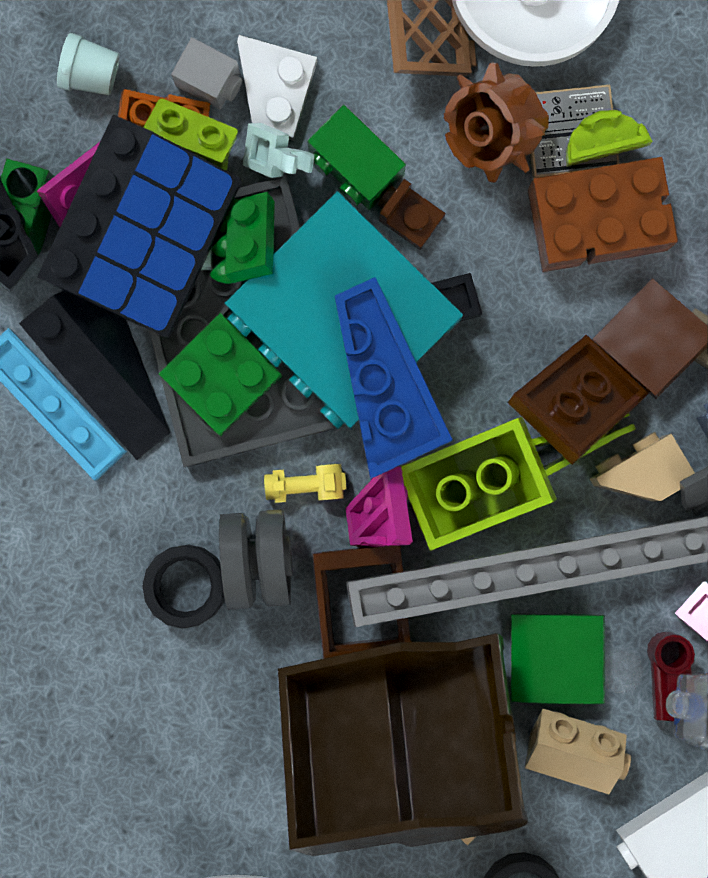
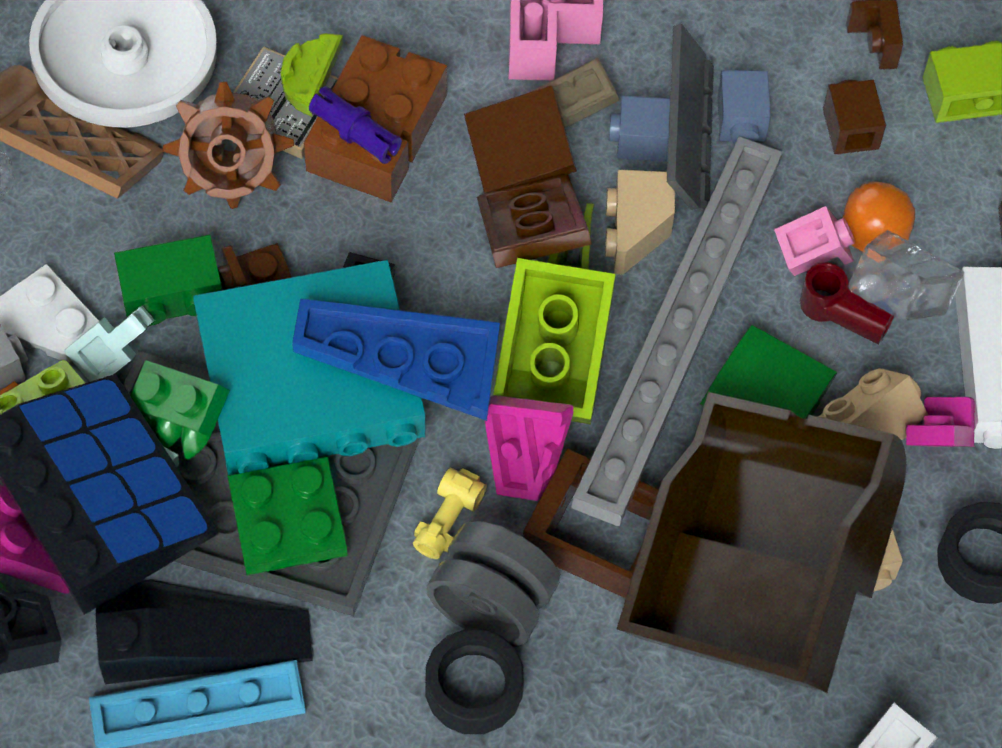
camera: 65 degrees left, 25 degrees down
(565, 210) = (355, 125): none -> dark purple pin
(606, 815) = (947, 424): none -> dark pink bracket

